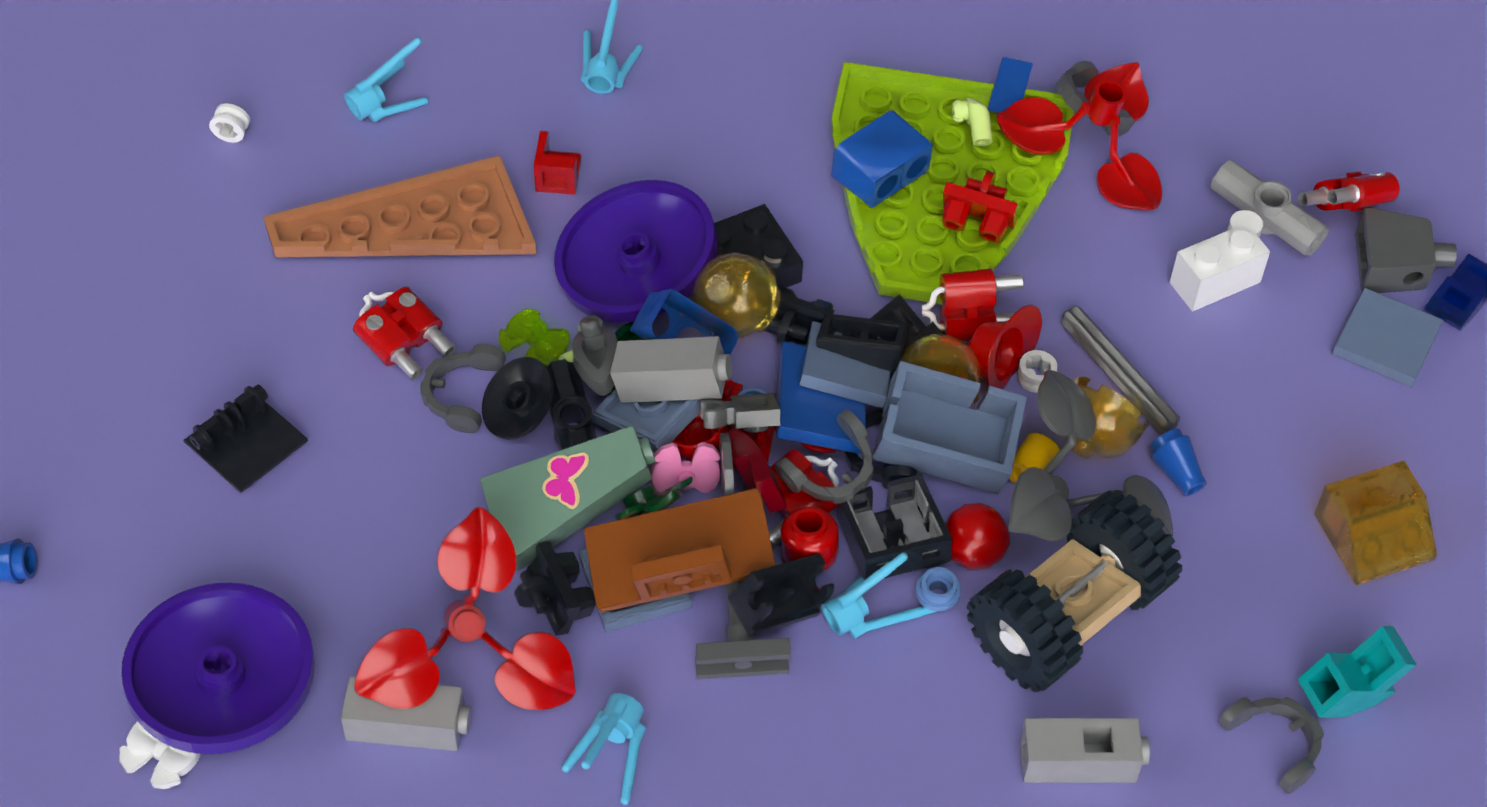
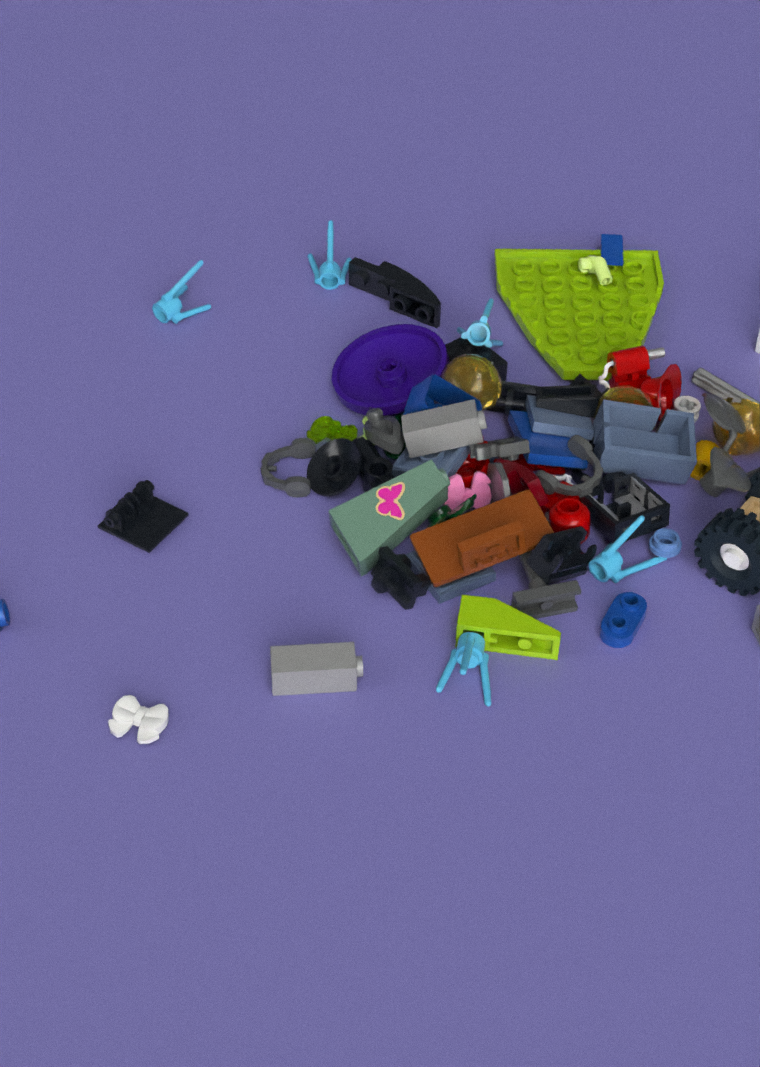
camera: 10 degrees left, 10 degrees down
(218, 668) = (169, 656): dark purple dish -> none
(229, 122) = (72, 339): white bush -> none
(398, 327) = (234, 437): red piece -> none
(438, 213) = (239, 368): nougat wing -> none
(471, 557) = (309, 627): red plant -> none
(555, 170) = (315, 333): red panel -> none
(672, 691) = (506, 628): none -> lime slope
(694, 114) = (398, 286): none -> black slope
(770, 211) = (480, 331): none -> medium azure plant
(846, 697) = (623, 619): none -> blue plate
(881, 158) = (543, 295): blue piece -> none
(977, 536) = (685, 508): red hair -> none
(982, 201) = (620, 313): red hips -> none
(1038, 128) = (683, 248): red plant -> none
(1079, 76) = (655, 242): dark grey piece -> none

